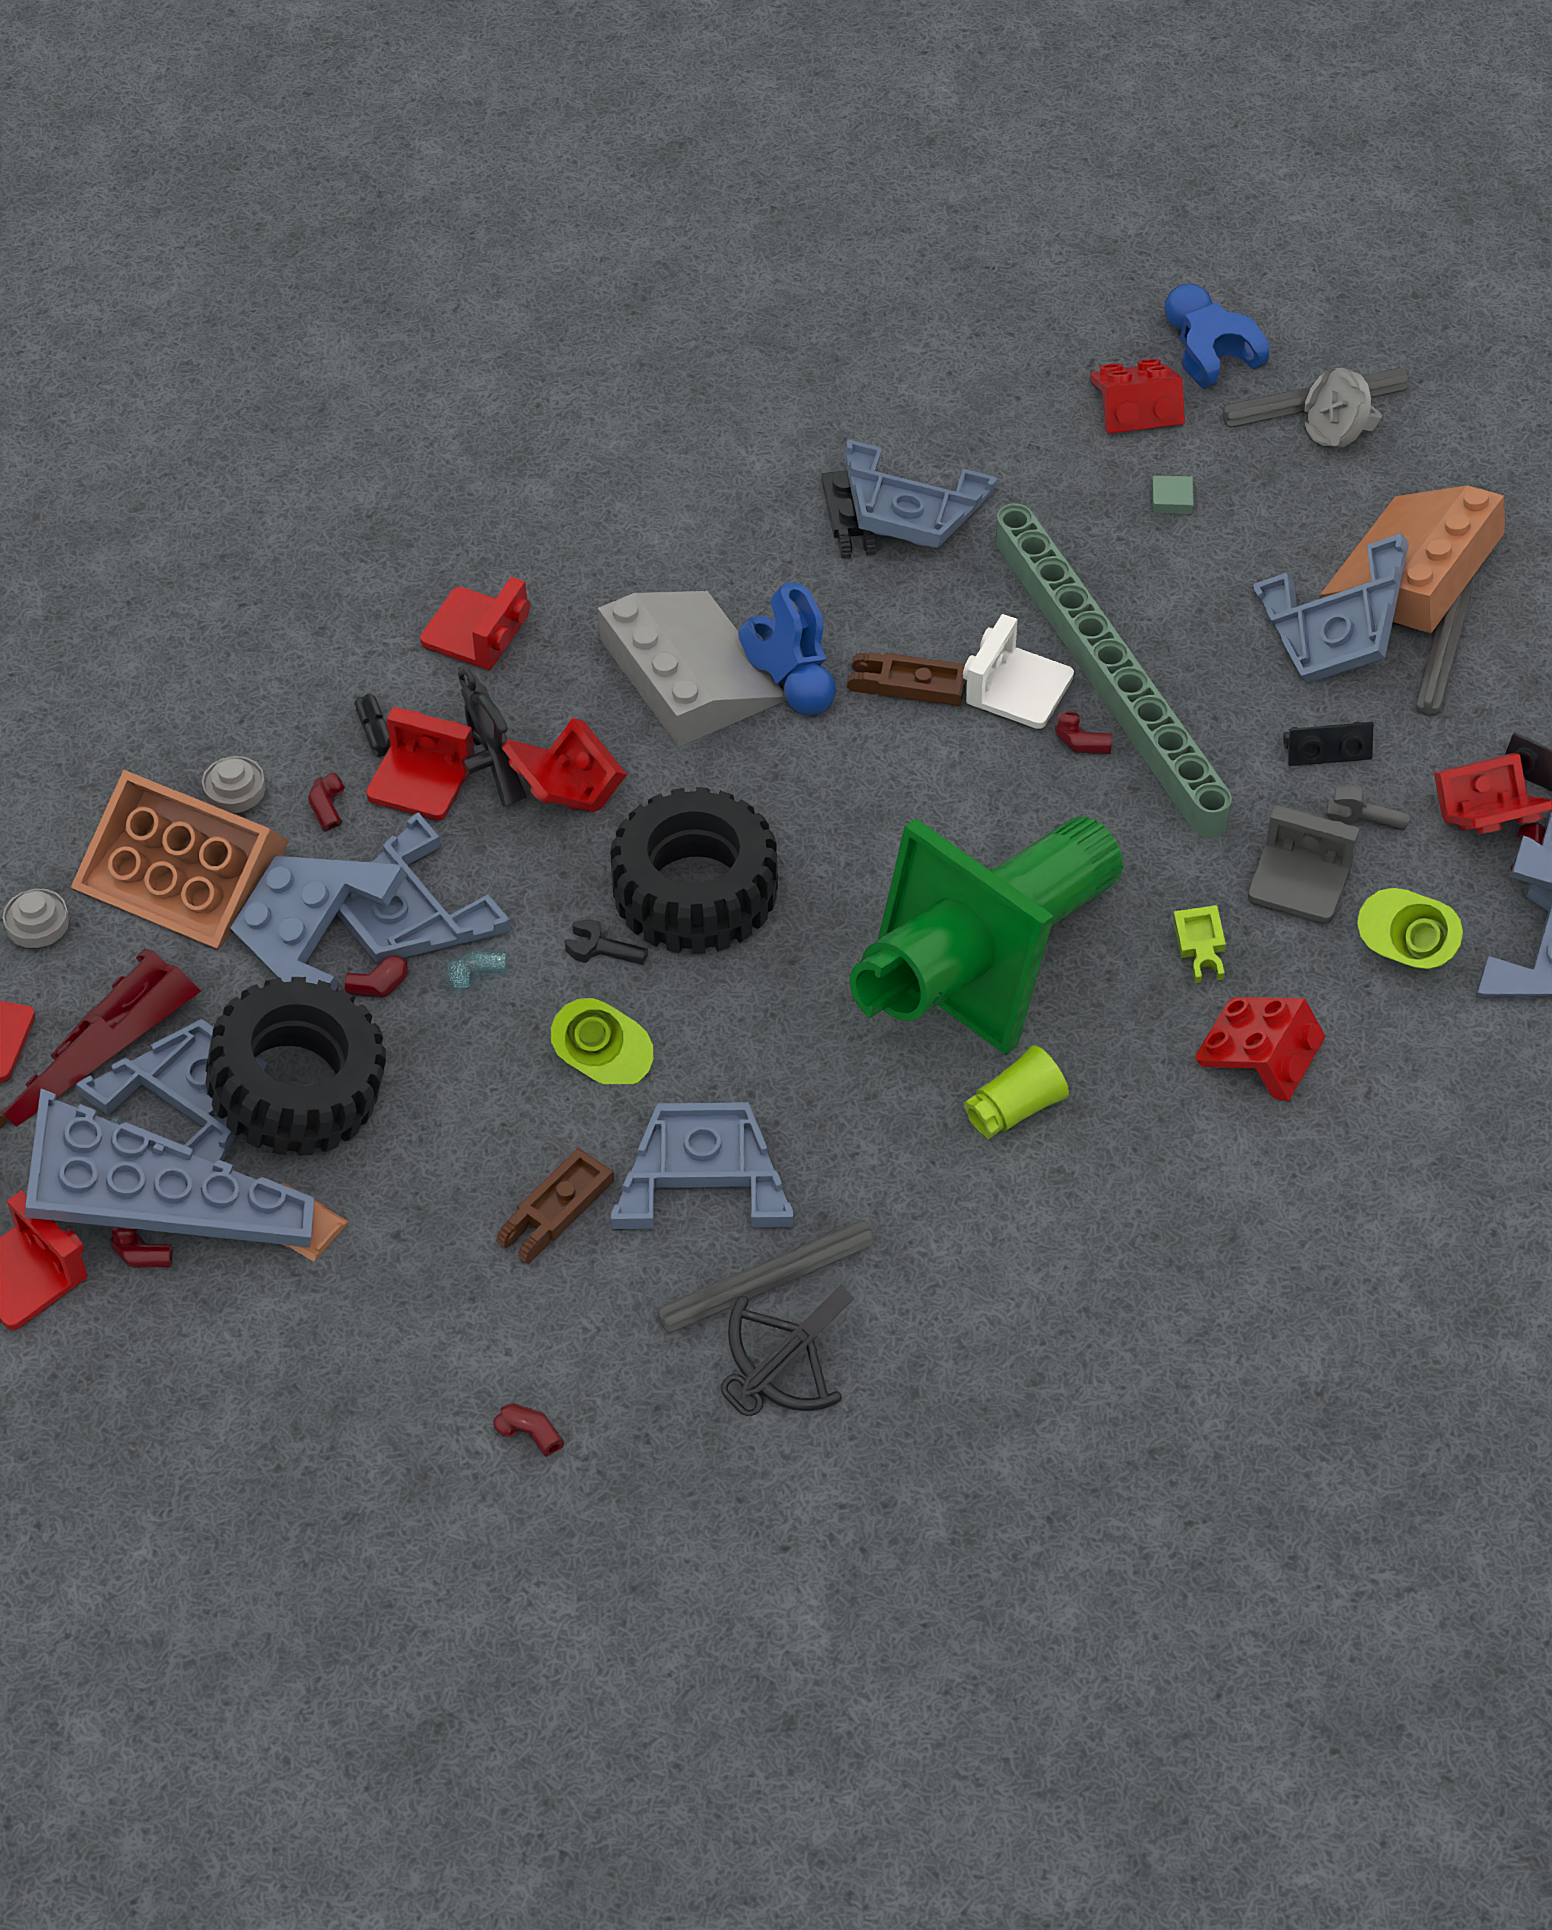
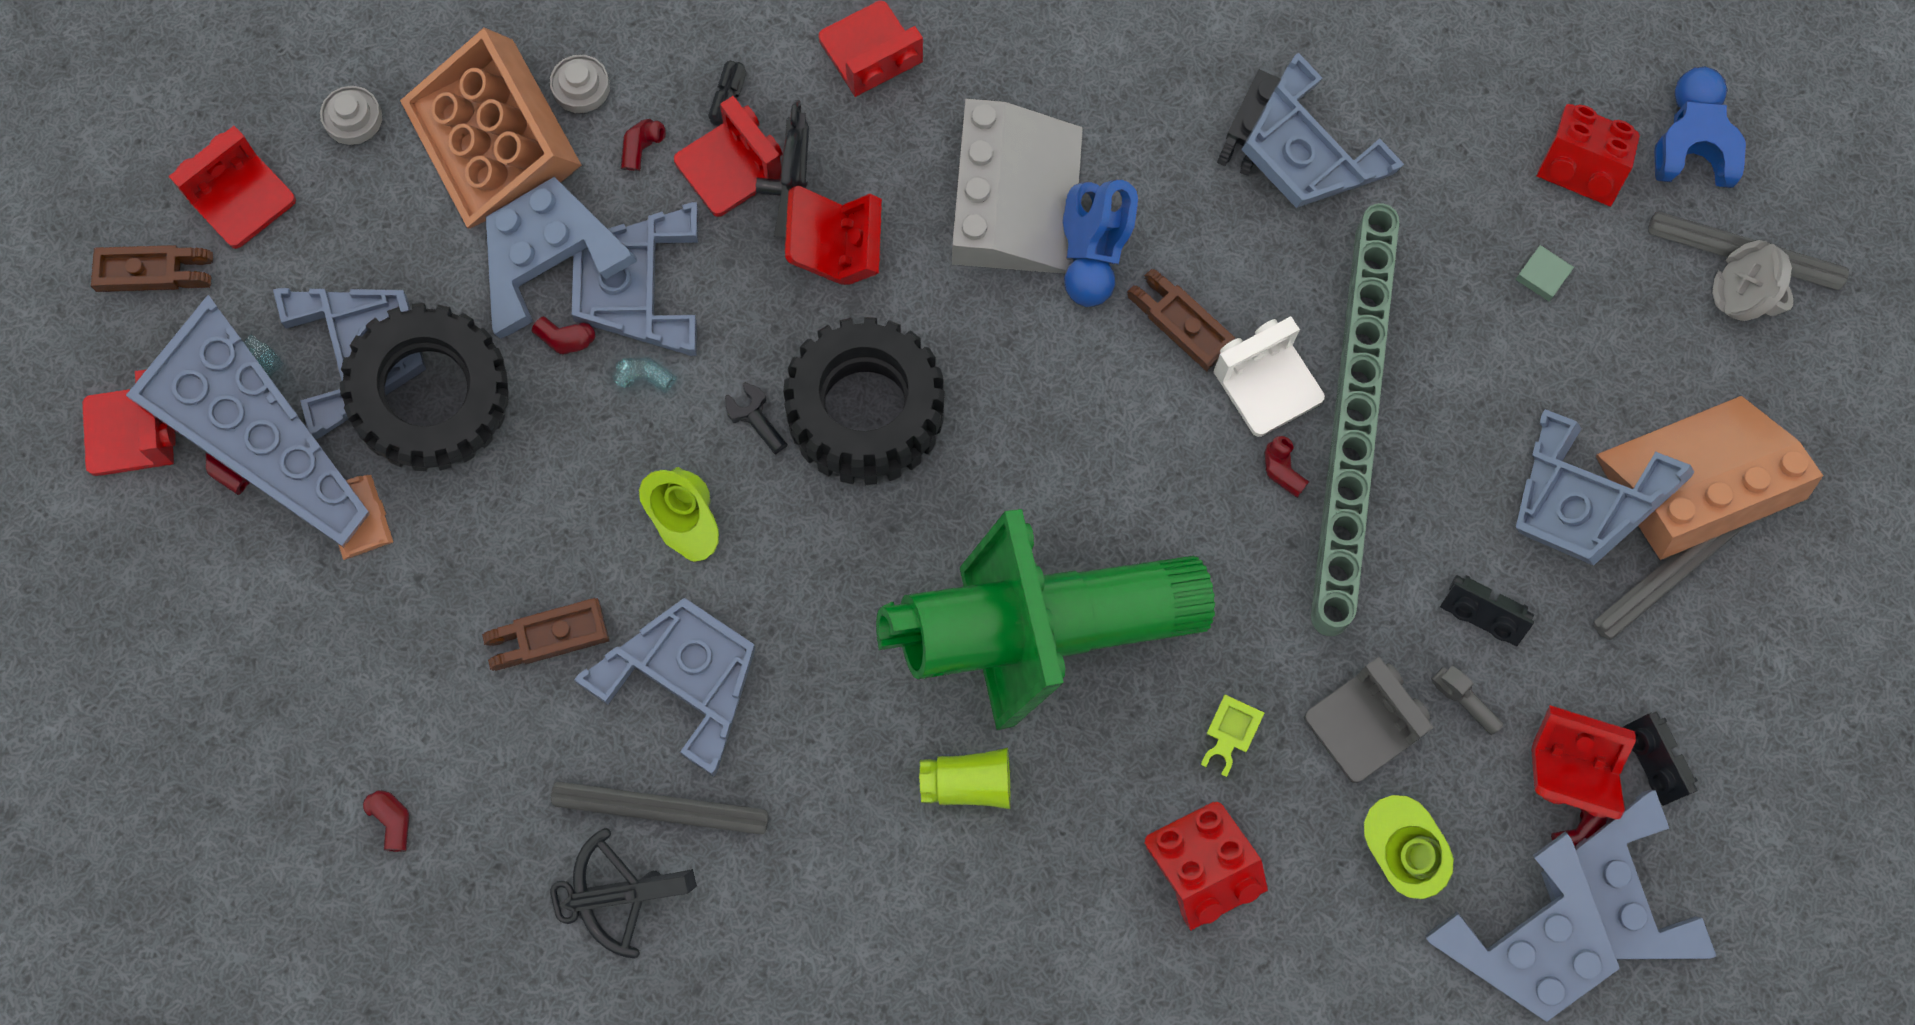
camera: 30 degrees right, 20 degrees up
(125, 1014) = (360, 246): dark red wedge -> none

